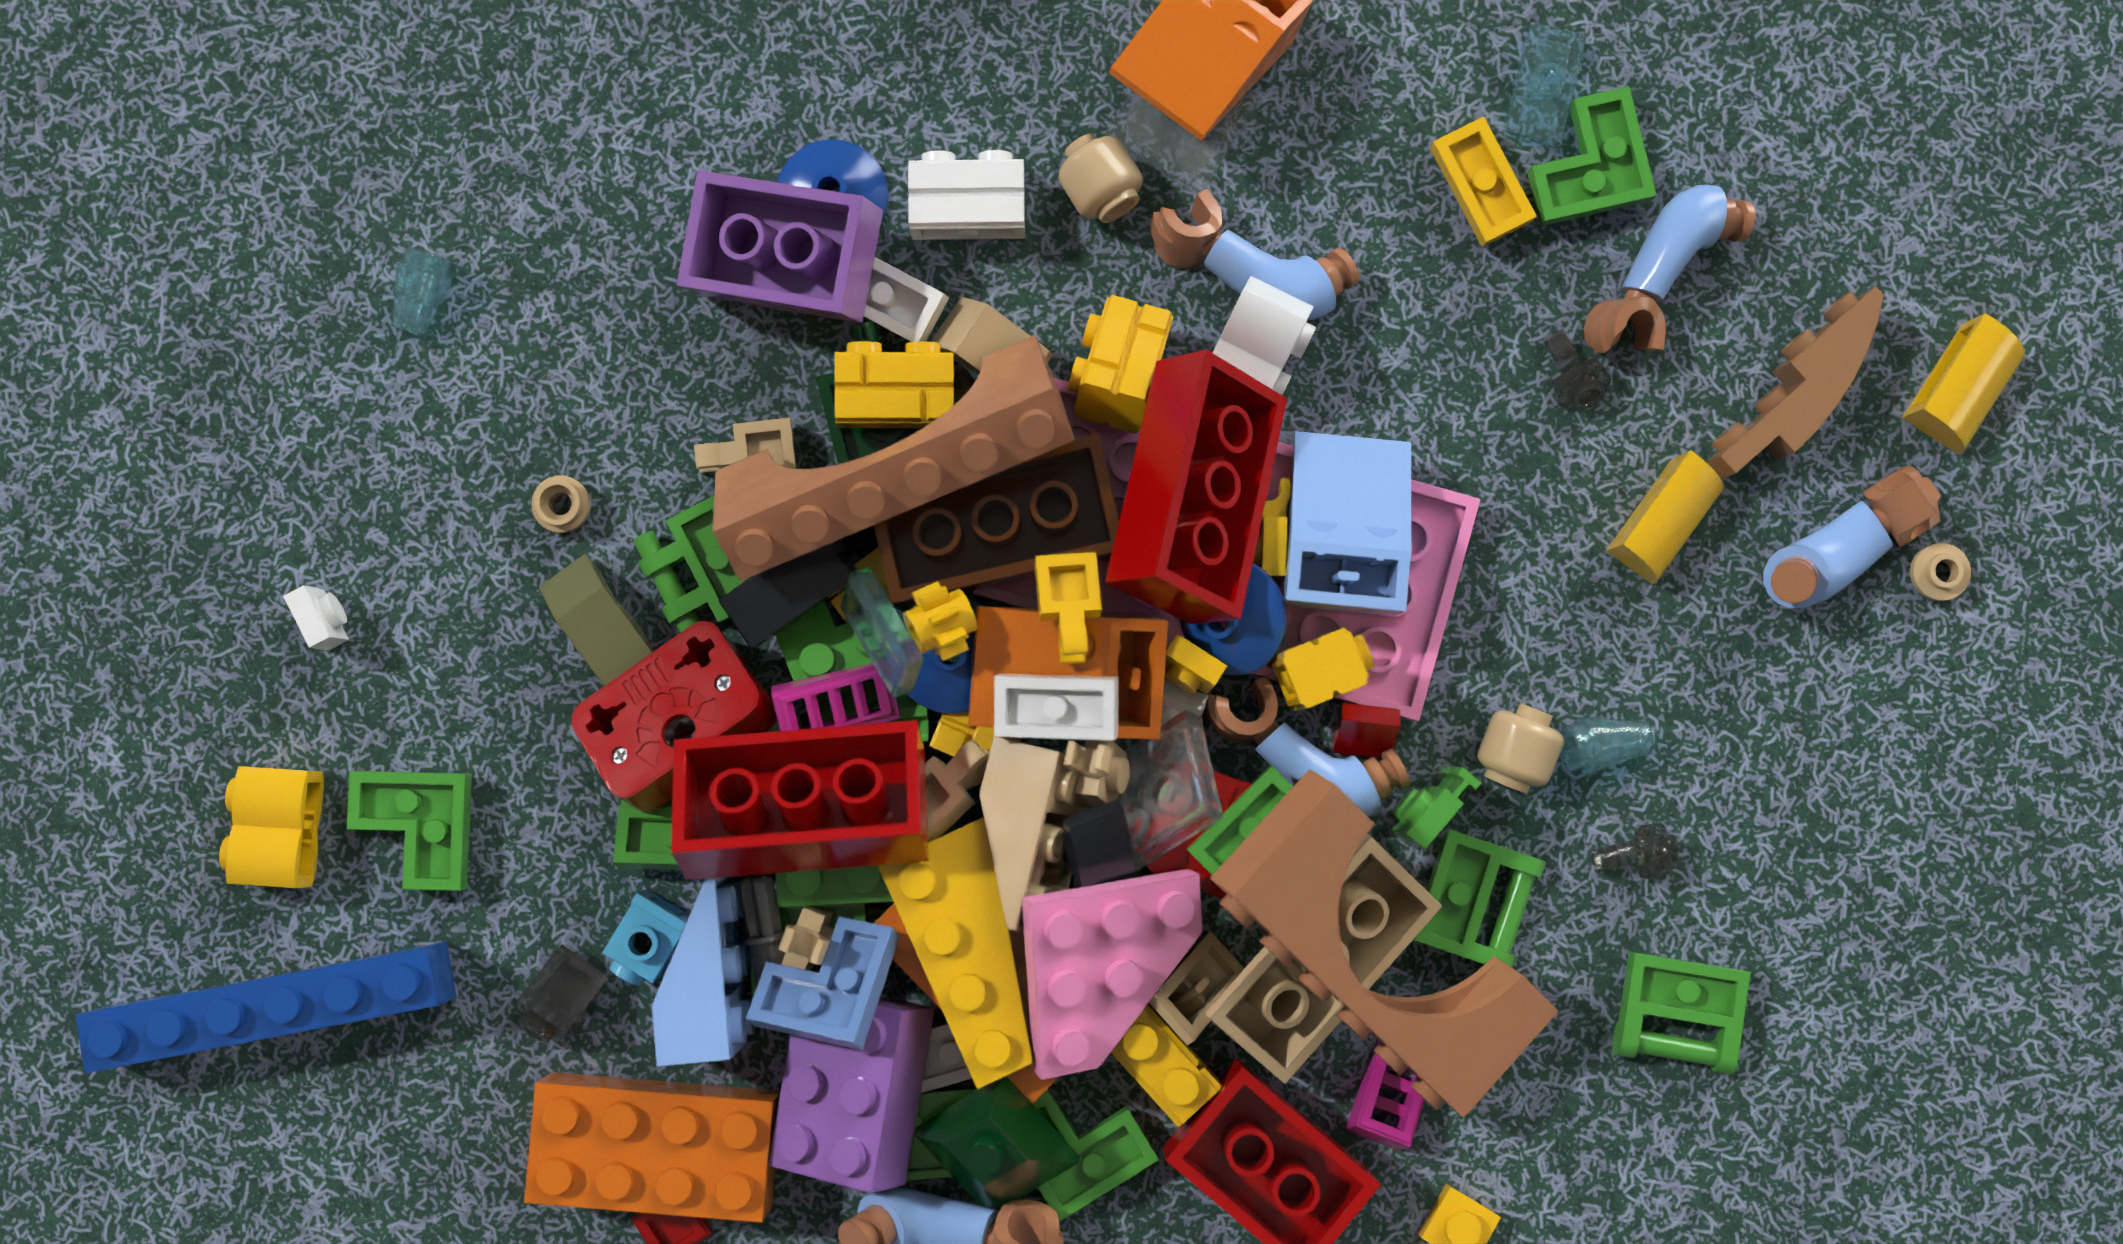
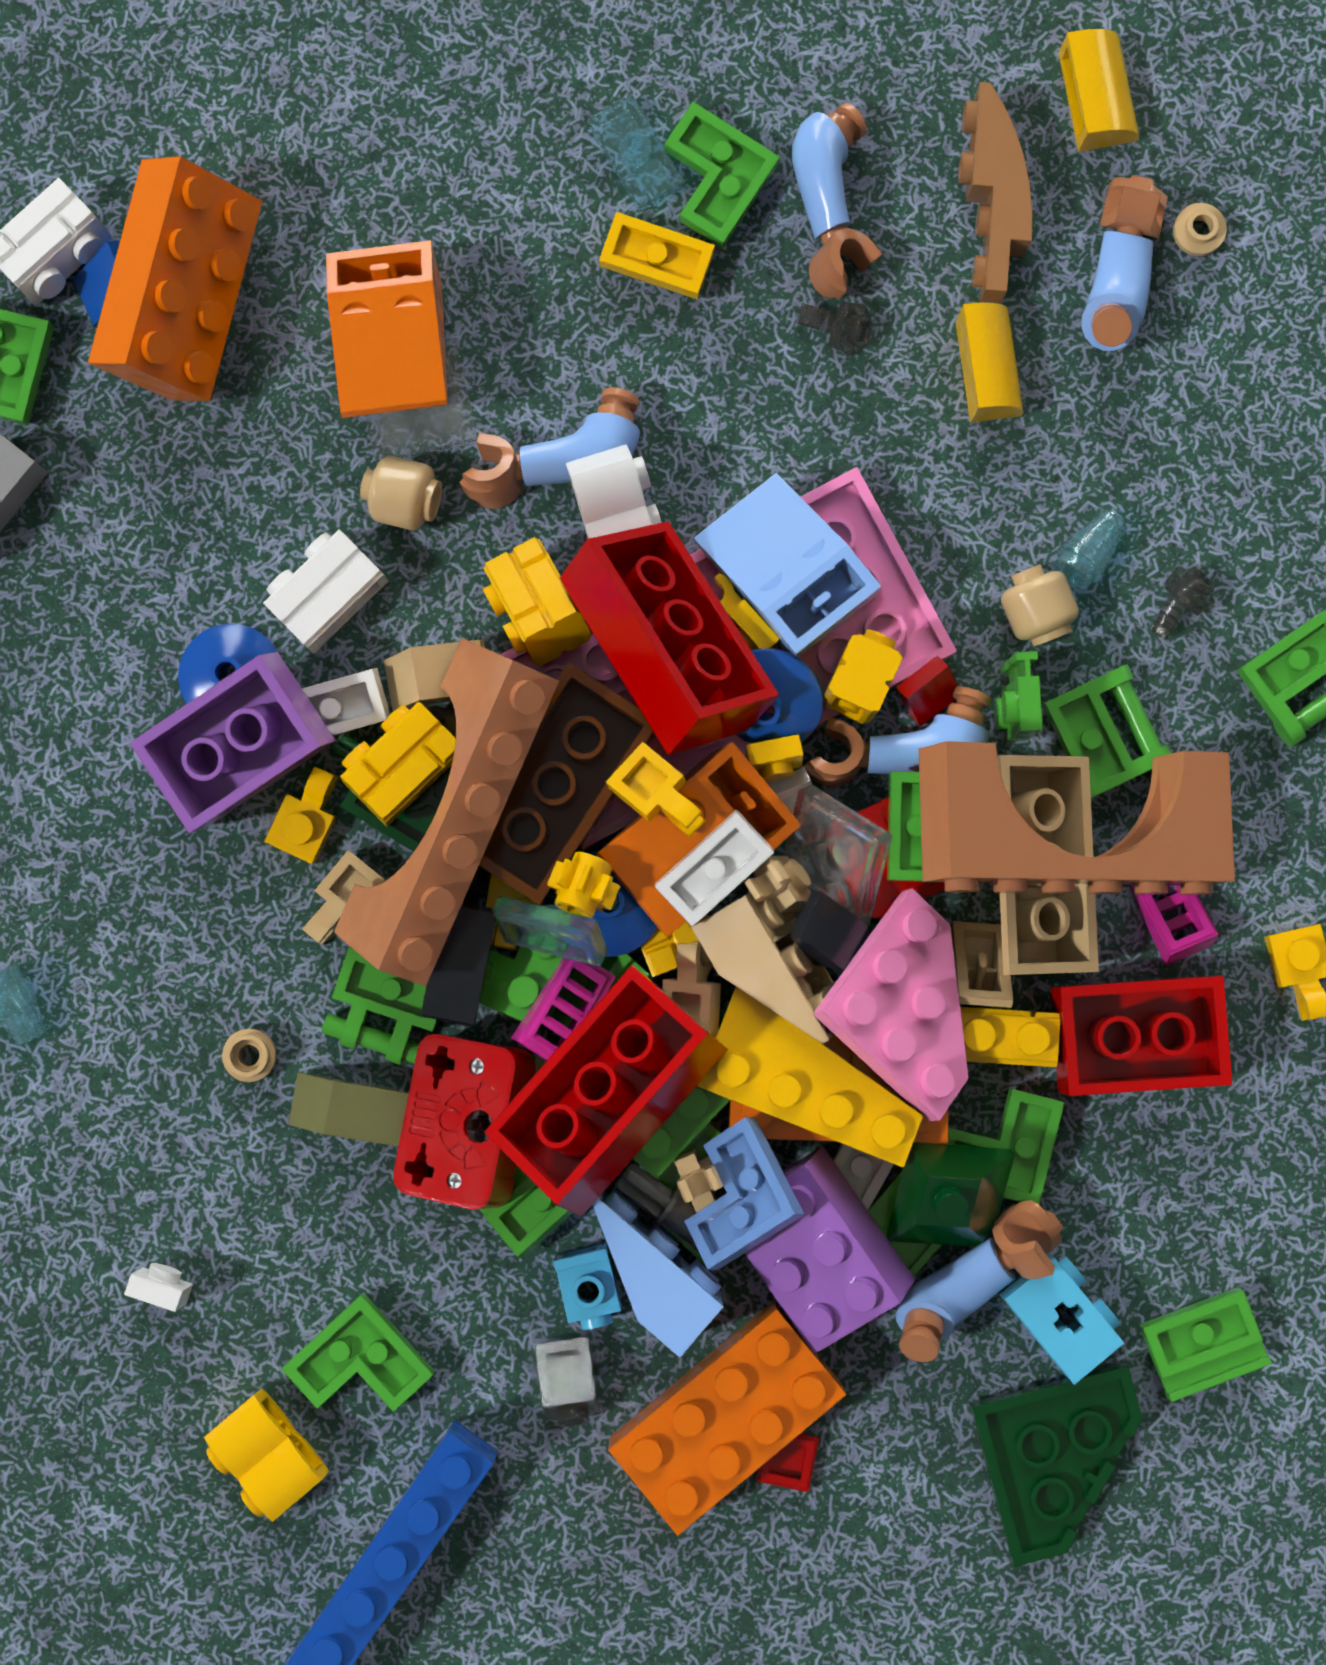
camera: 45 degrees left, 0 degrees up
(776, 364) = (302, 823): none -> yellow plate

